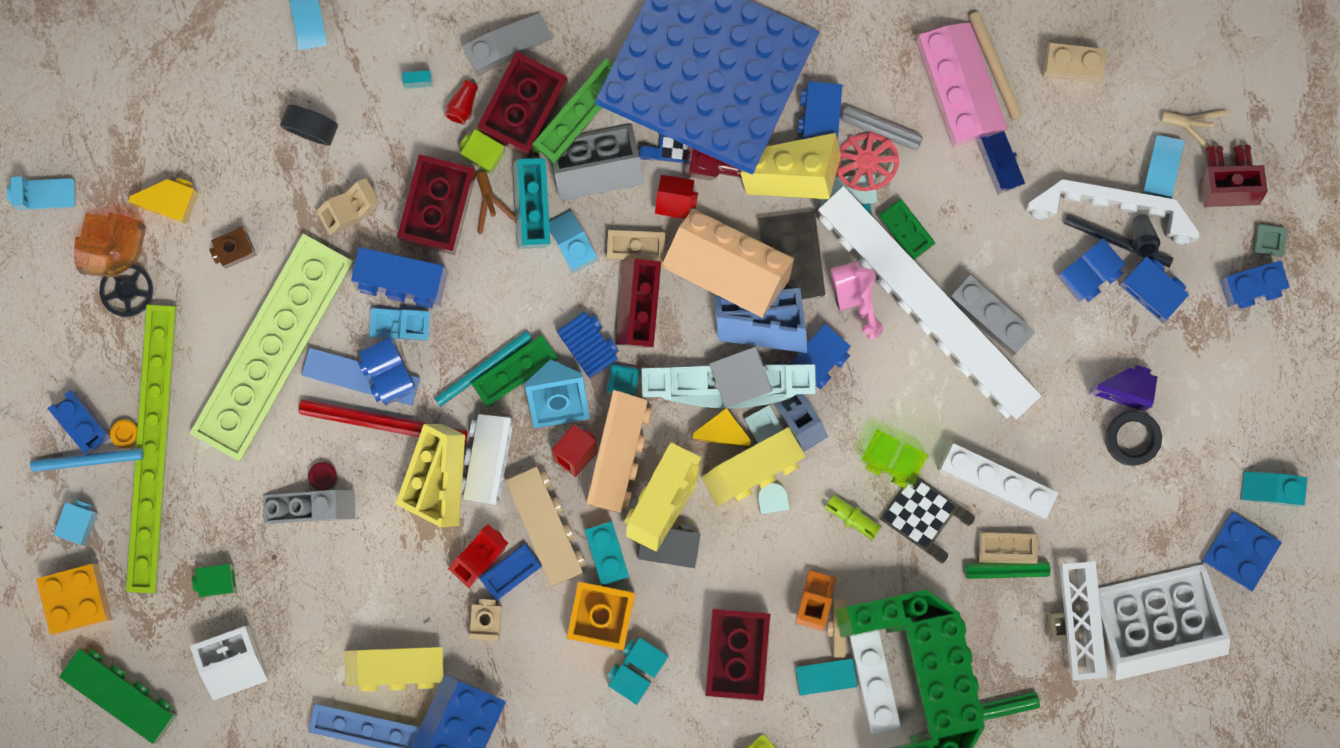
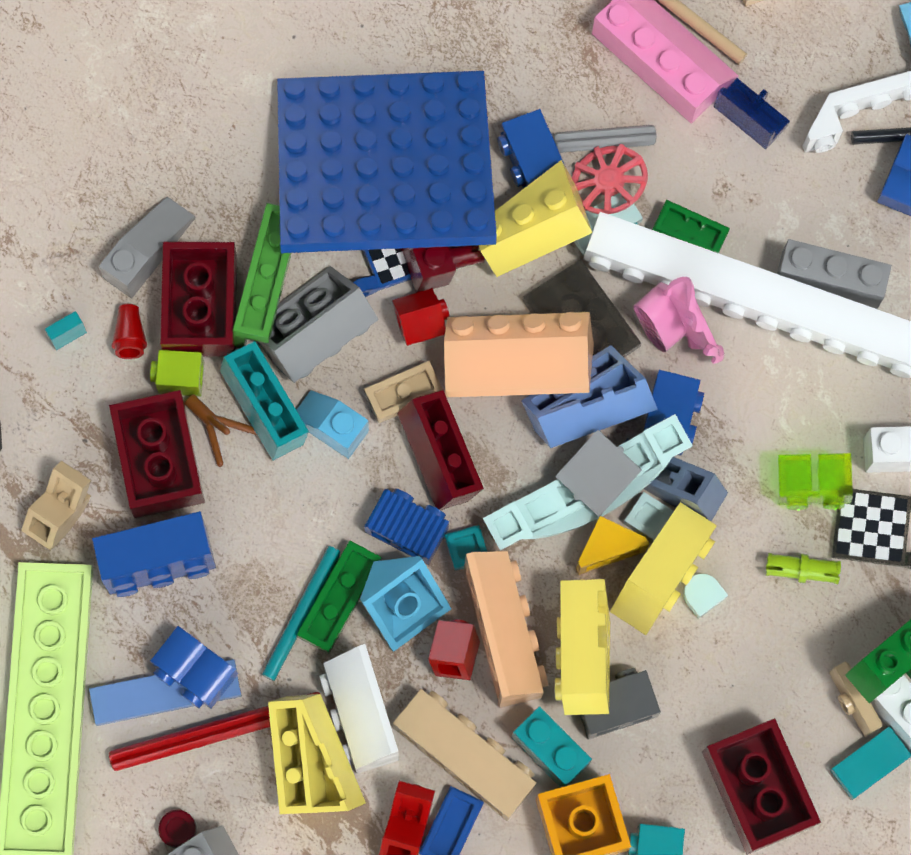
camera: 30 degrees left, 10 degrees down
(399, 324) = (183, 609): medium azure slope -> none
(815, 600) = (815, 683): orange brick -> none

